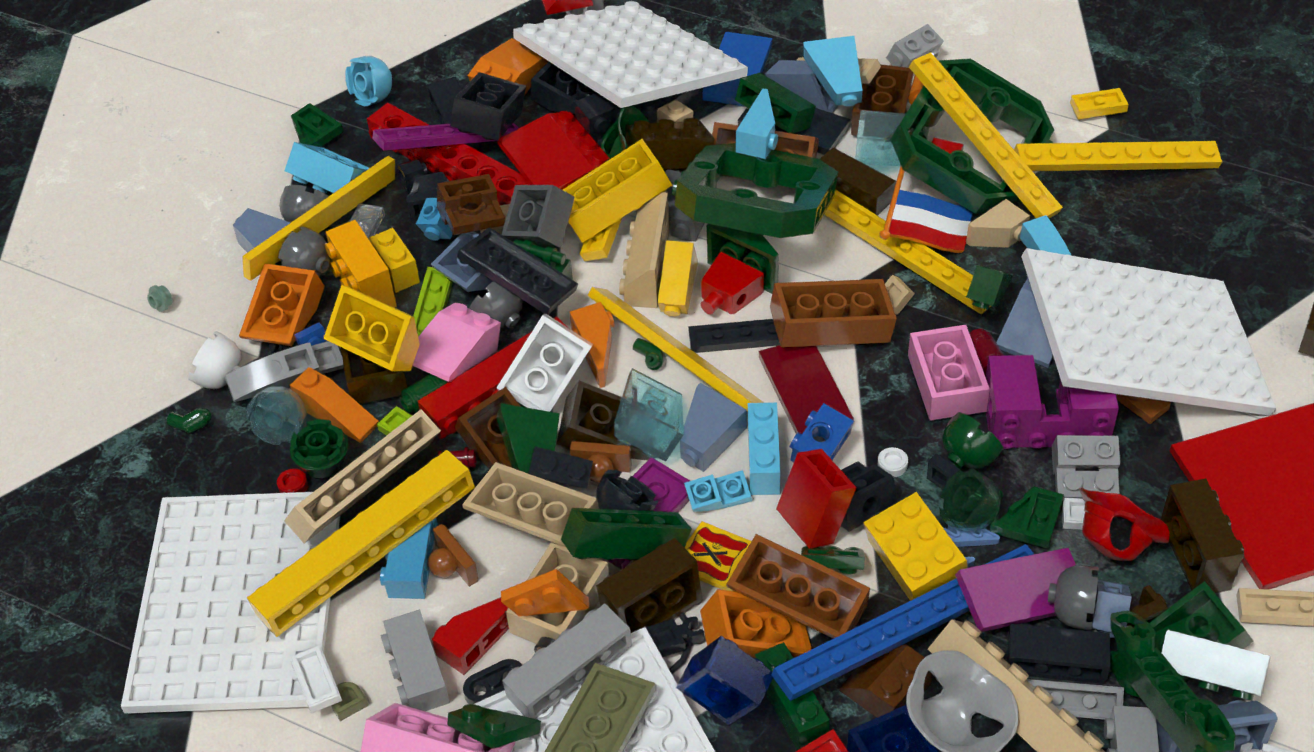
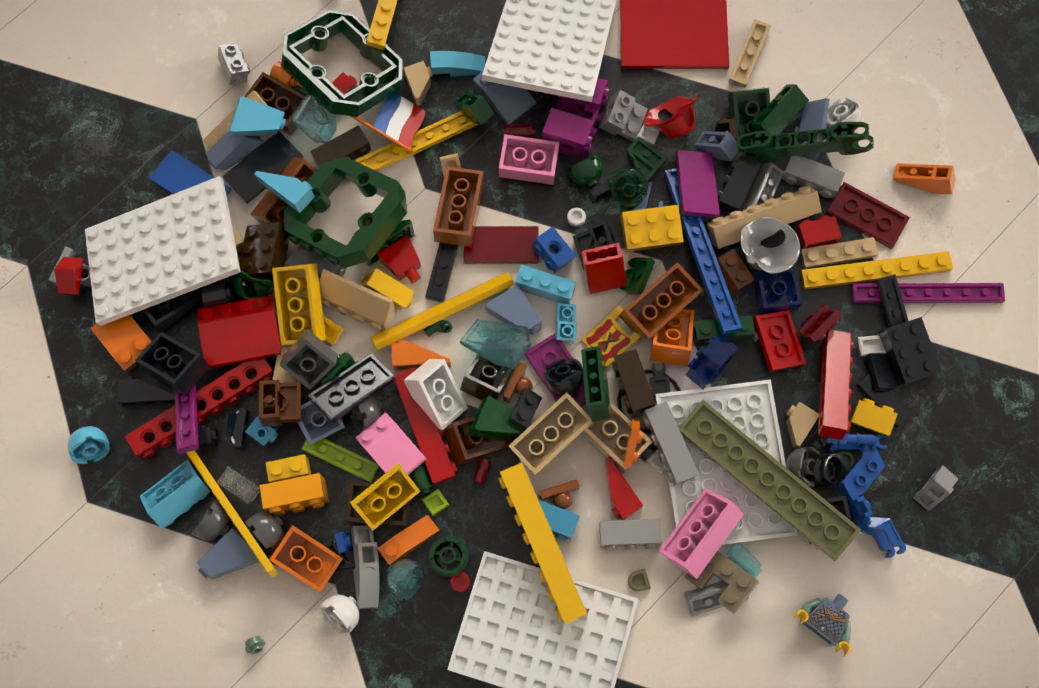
camera: 75 degrees left, 25 degrees up
(190, 422) = (382, 640): dark green arm -> none
(315, 126) = (118, 498): dark green wing -> none
(315, 679) = (626, 595): white tile -> none
(361, 476) = (487, 532): tan brick -> none
(488, 681) = (659, 491): black plate -> none
(492, 726) = (699, 498): dark green wing -> none
(789, 109) = (241, 174): dark green brick -> none
(985, 136) = (355, 56): yellow plate -> none
(1075, 596) = (717, 159): dark grey cylinder -> none
(1202, 536) = (698, 78): dark brown brick -> none

